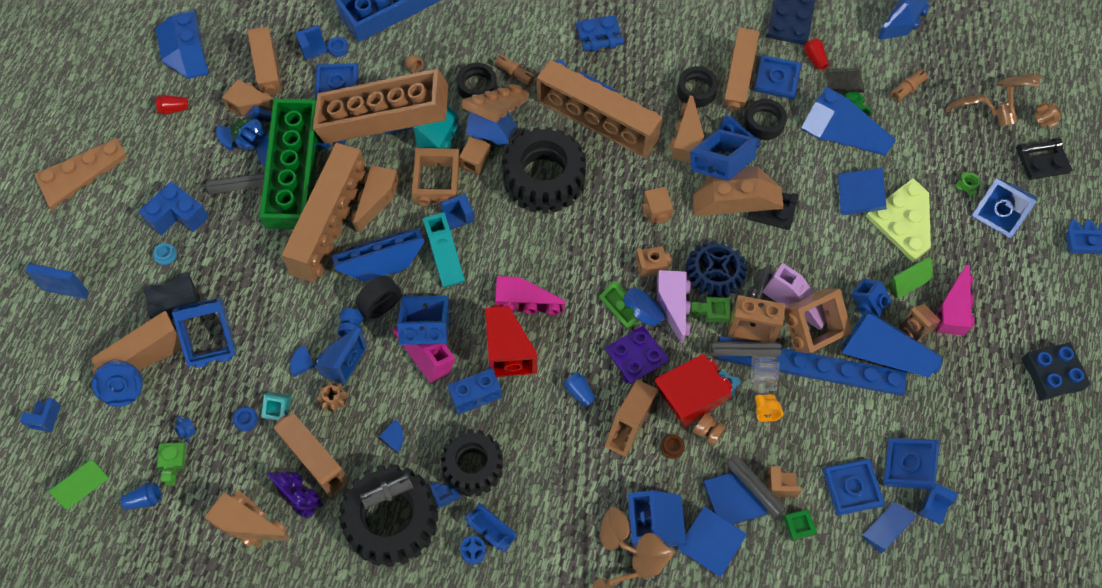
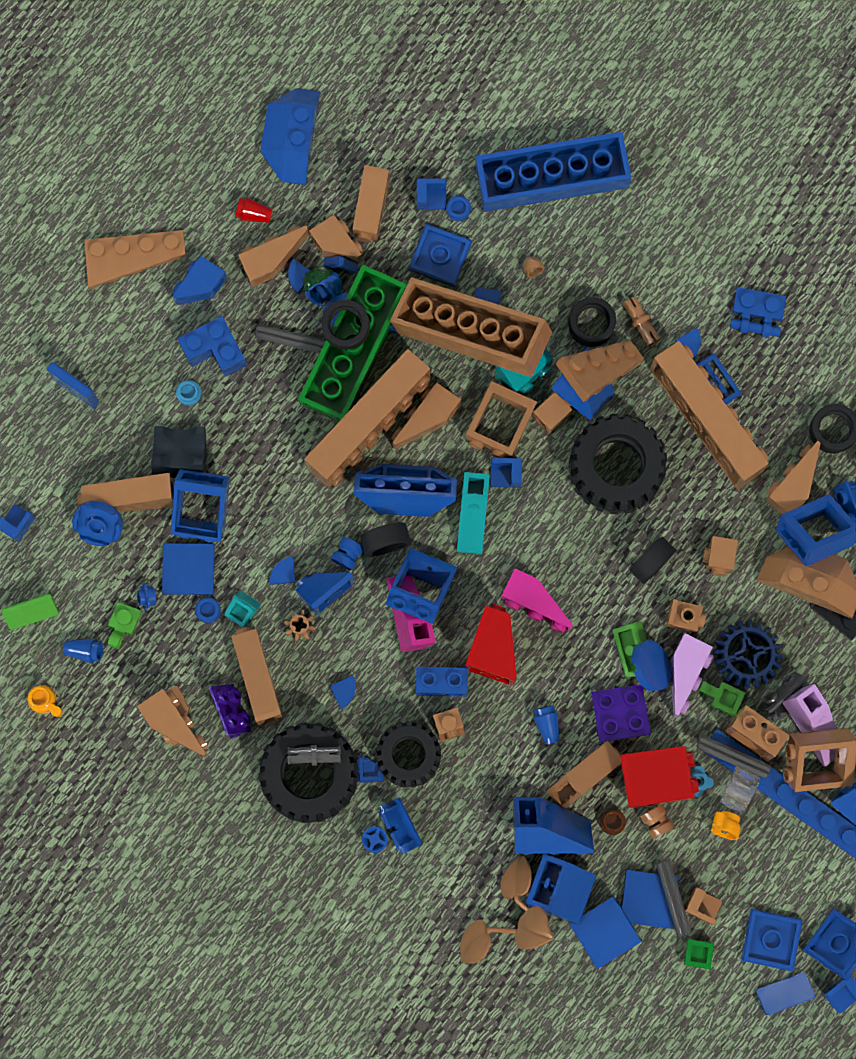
camera: 25 degrees right, 15 degrees up
(117, 558) = (43, 699): none -> light orange piece
(145, 169) = (200, 284): none -> blue slope
(198, 129) = (268, 259): none -> medium nougat slope
(215, 392) = (188, 569): none -> blue tile
(269, 130) = (331, 311): none -> black tyre
(496, 423) = (448, 724): none -> medium nougat brick
(606, 227) = (653, 560): none -> black tyre
(619, 472) = (549, 828): none -> blue slope

